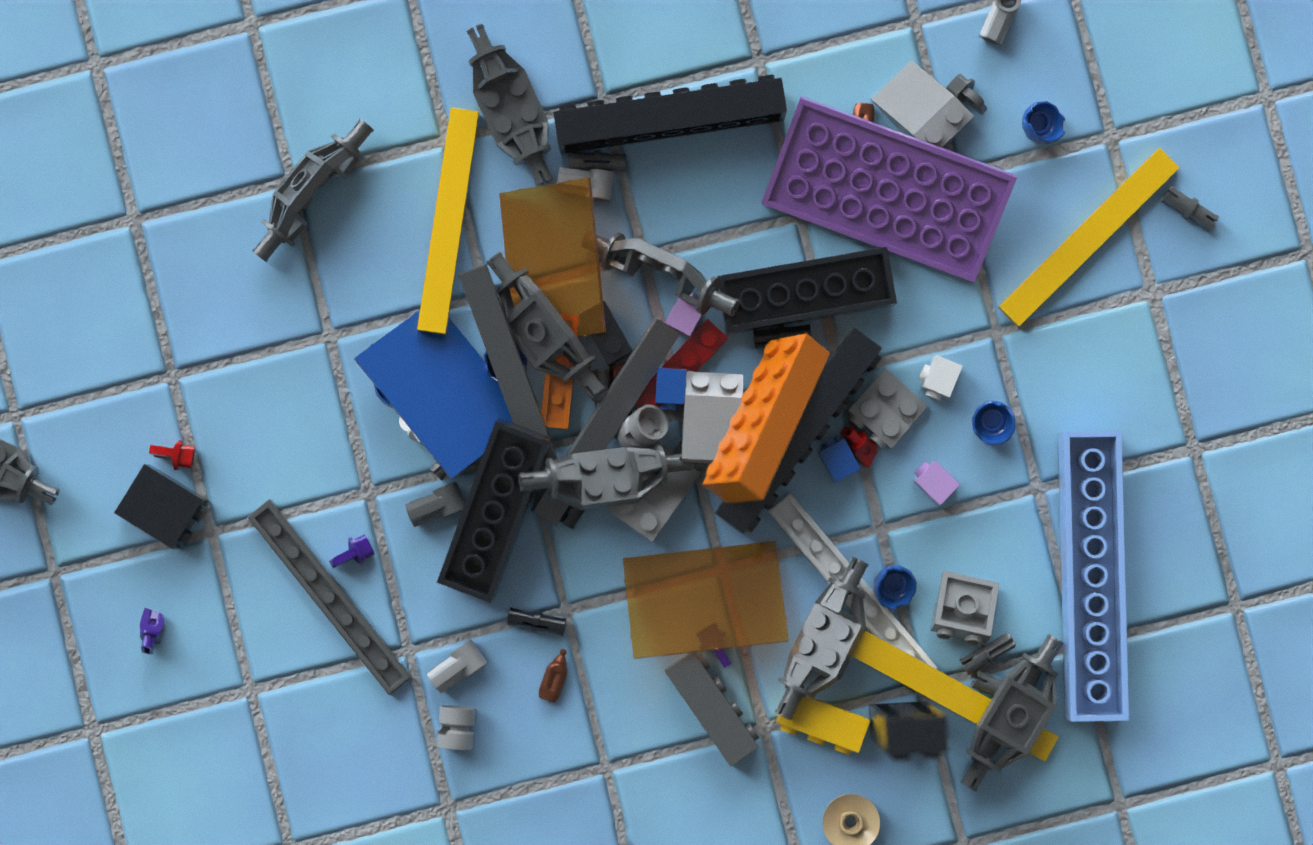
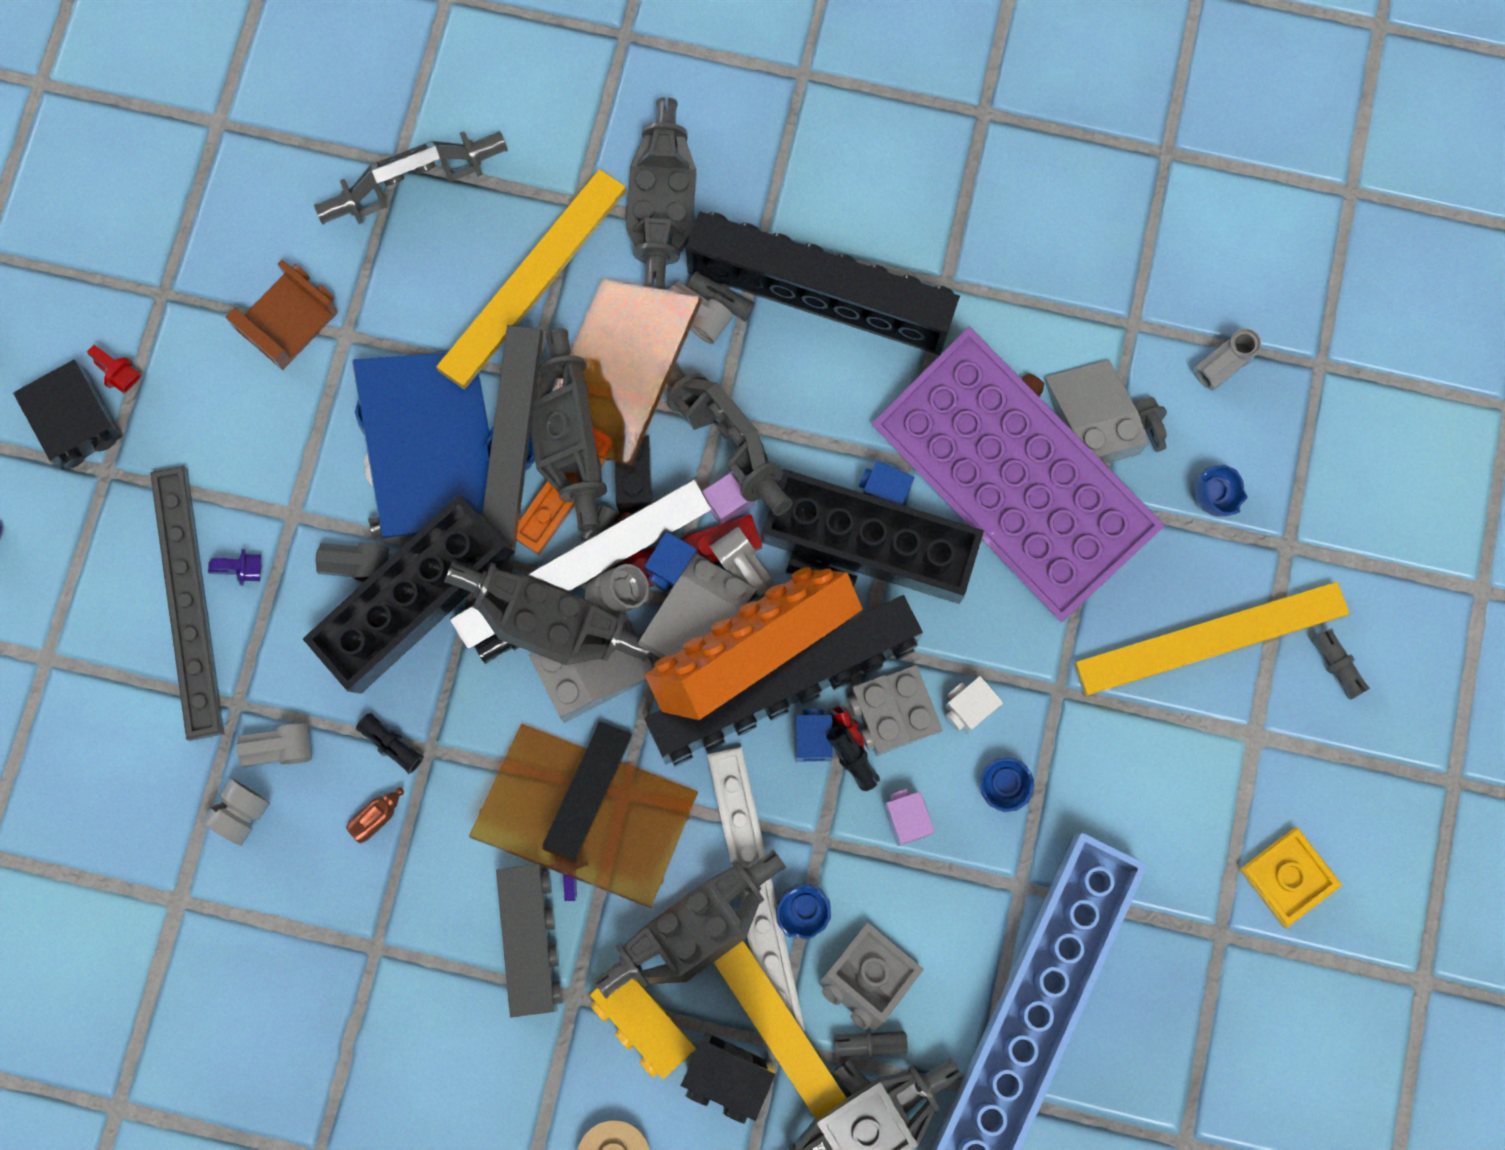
camera: 25 degrees right, 10 degrees down
(277, 346) = (285, 316): none -> dark orange panel
(698, 583) = (587, 792): none -> black tile
(717, 357) = (739, 558): none -> light grey piece
(796, 246) = (886, 483): none -> blue brick
(875, 460) = (853, 757): none -> black pin
(1224, 383) = (1290, 877): none -> yellow tile

